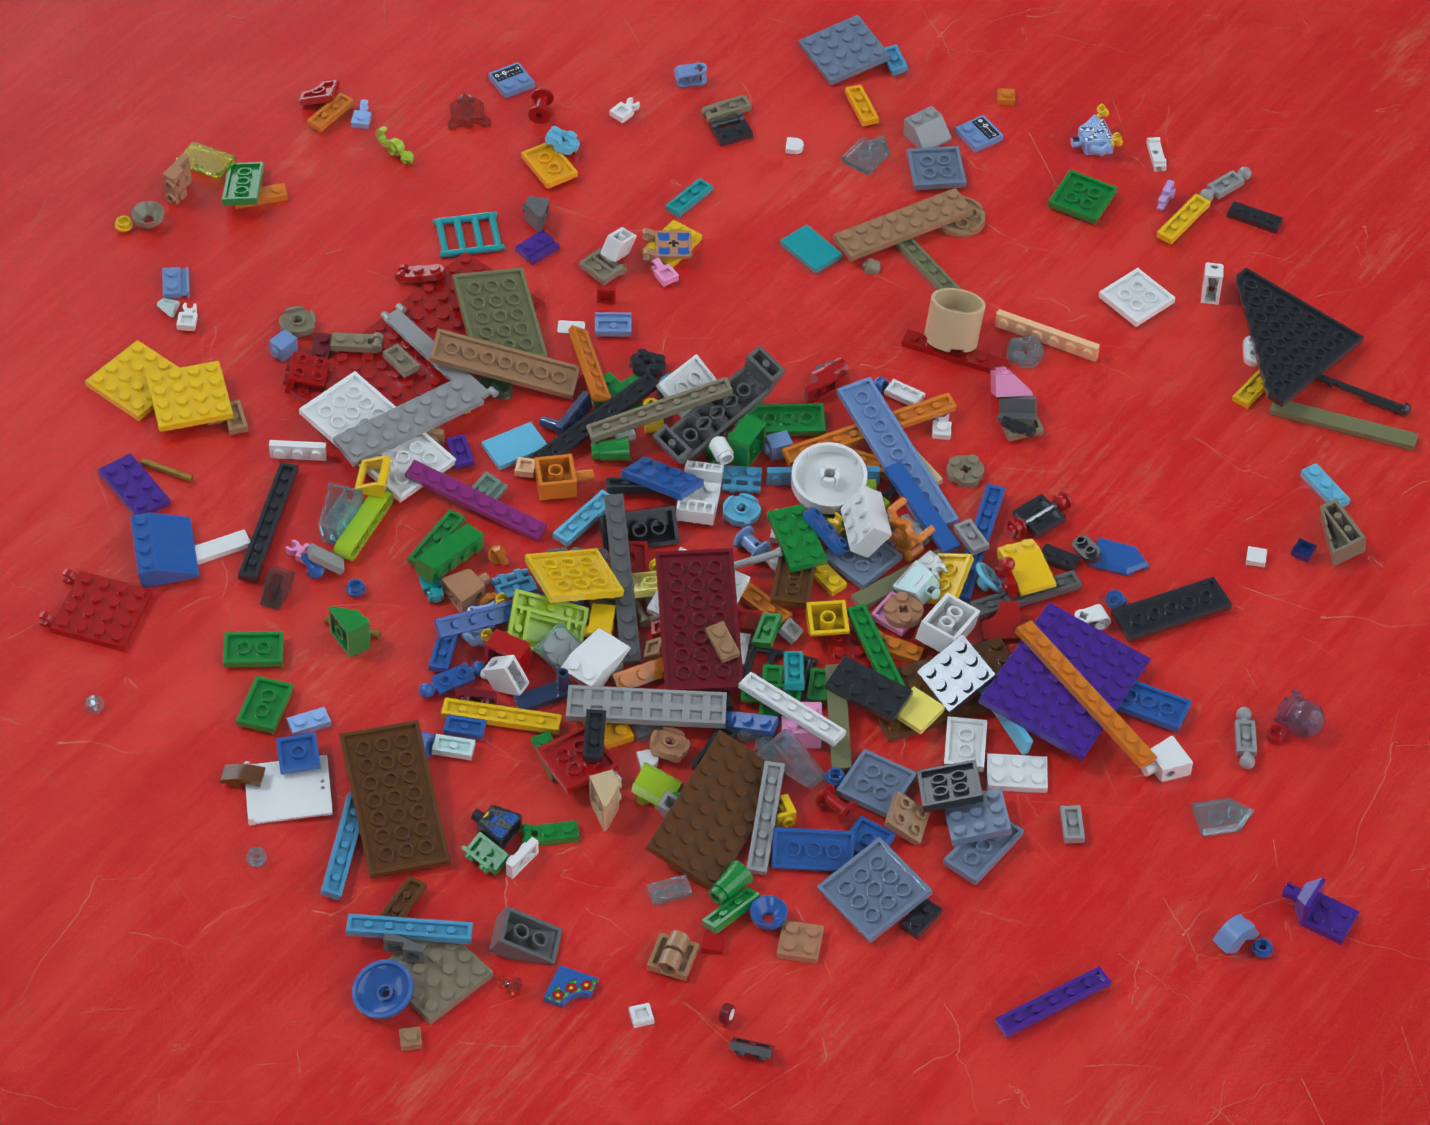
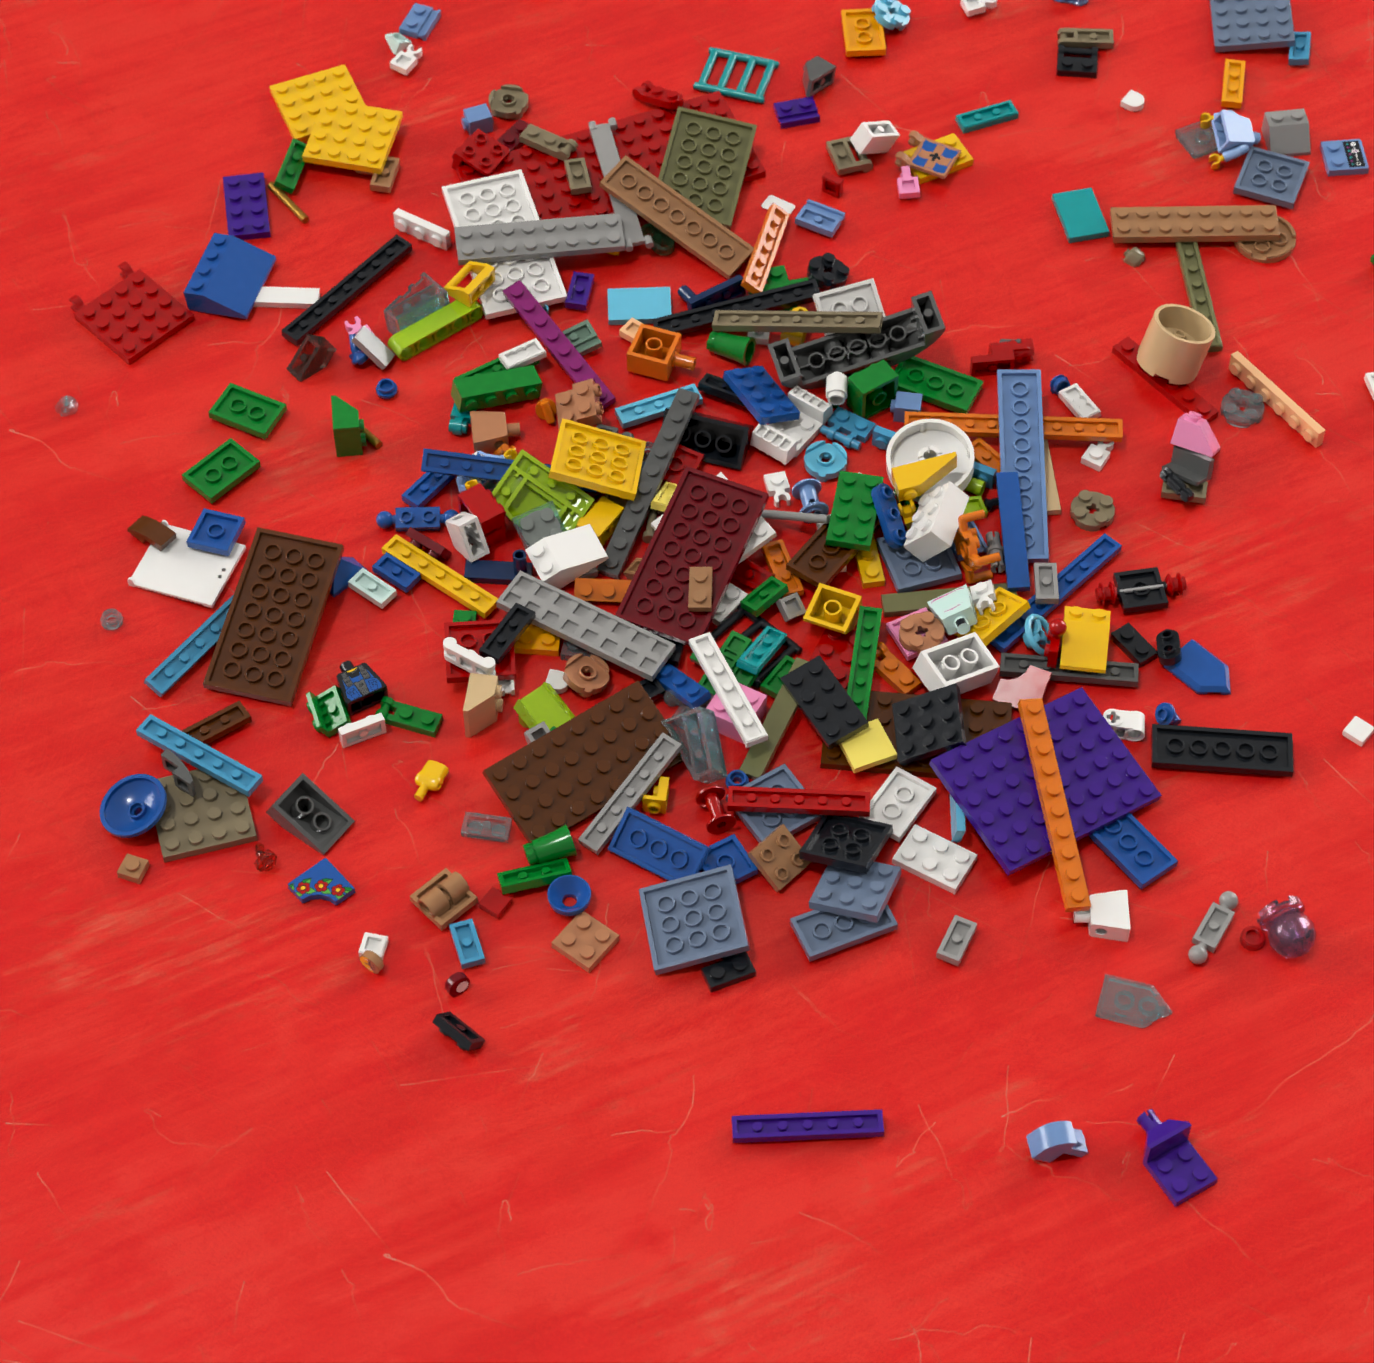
camera: 30 degrees right, 5 degrees up
(152, 439) = (291, 167): none -> green plate
(309, 721) = (252, 505): light blue plate -> none
(437, 435) = (565, 266): medium nougat plate -> none
(453, 518) = (523, 355): none -> white plate
(504, 584) = (539, 444): dark azure plate -> none
(523, 540) = (580, 403): none -> nougat plate
(577, 767) = (467, 659): none -> white plate
(600, 871) = (430, 778): none -> yellow piece
(650, 1026) = (372, 961): none -> medium nougat tile
(713, 981) = (467, 943): none -> dark azure plate
(716, 541) = (777, 486): none -> white plate
(831, 494) = (918, 477): none -> yellow slope
(889, 144) = (1232, 135): none -> light blue torso
(895, 771) = (798, 801): none -> red plate
(1264, 944) = (1080, 1164): blue plate -> none

